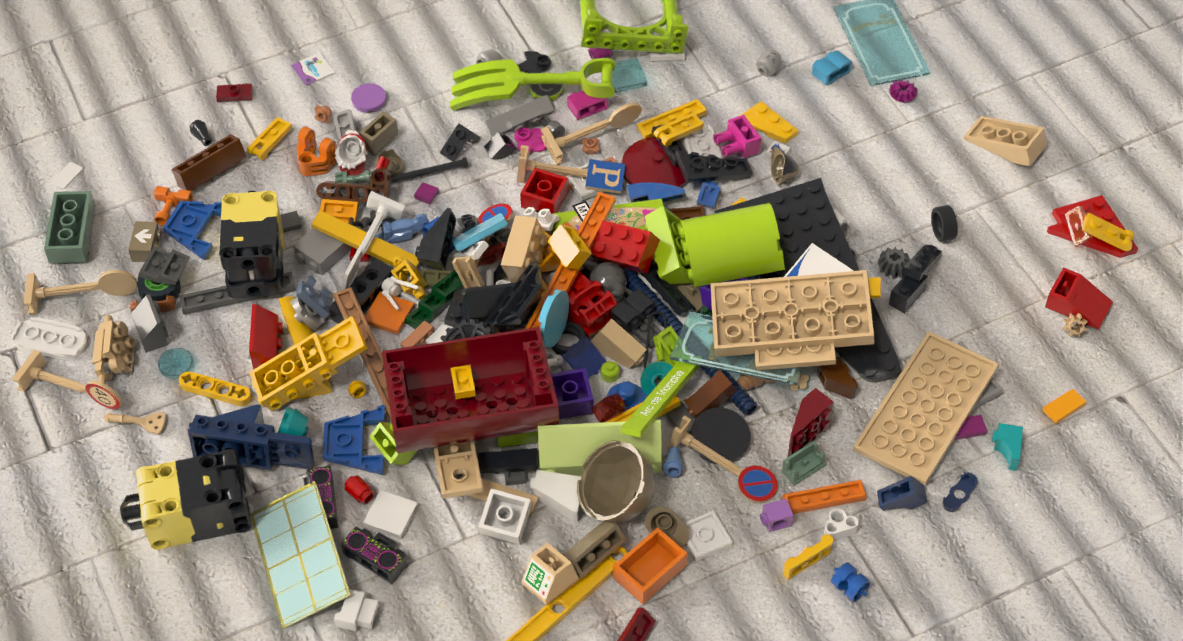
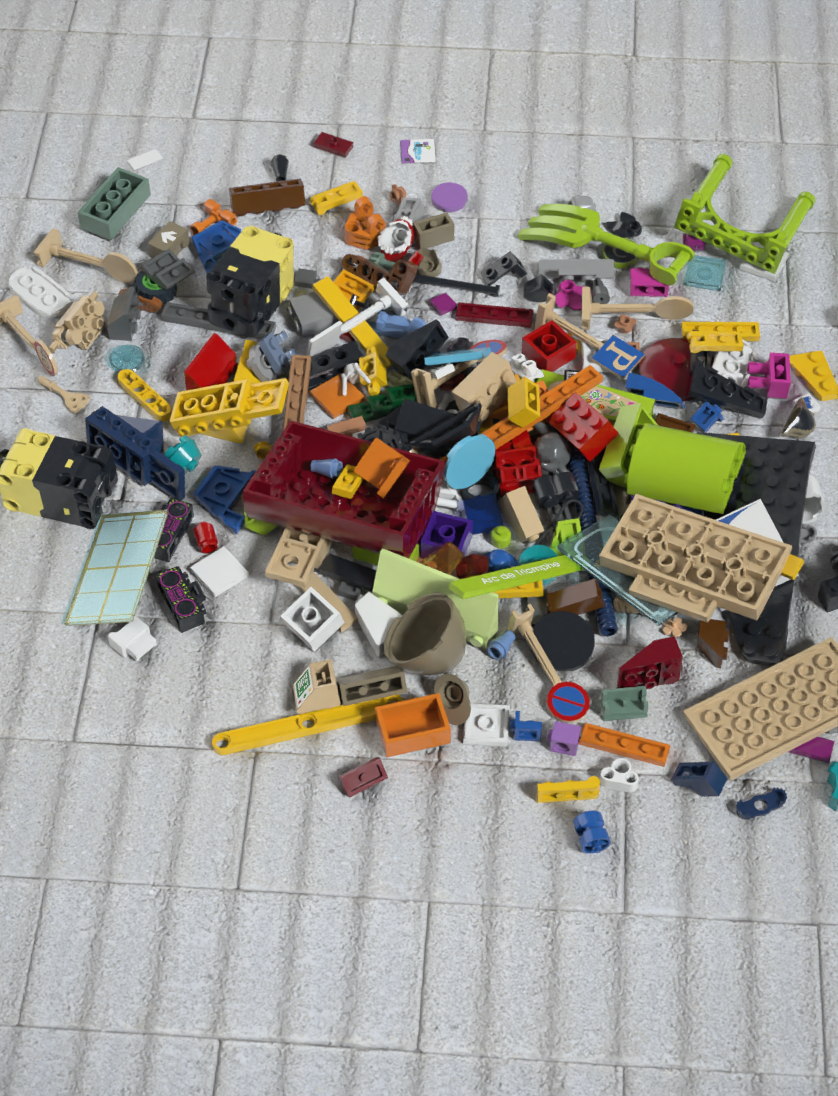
camera: 30 degrees right, 0 degrees up
(435, 378) = (330, 467): none -> medium blue cone
(476, 184) = (494, 315): none -> dark red tile
(488, 356) = (381, 466): none -> orange bracket
(582, 412) = (444, 558): none -> clear orange slope
(741, 524) = (525, 730): none -> blue bracket

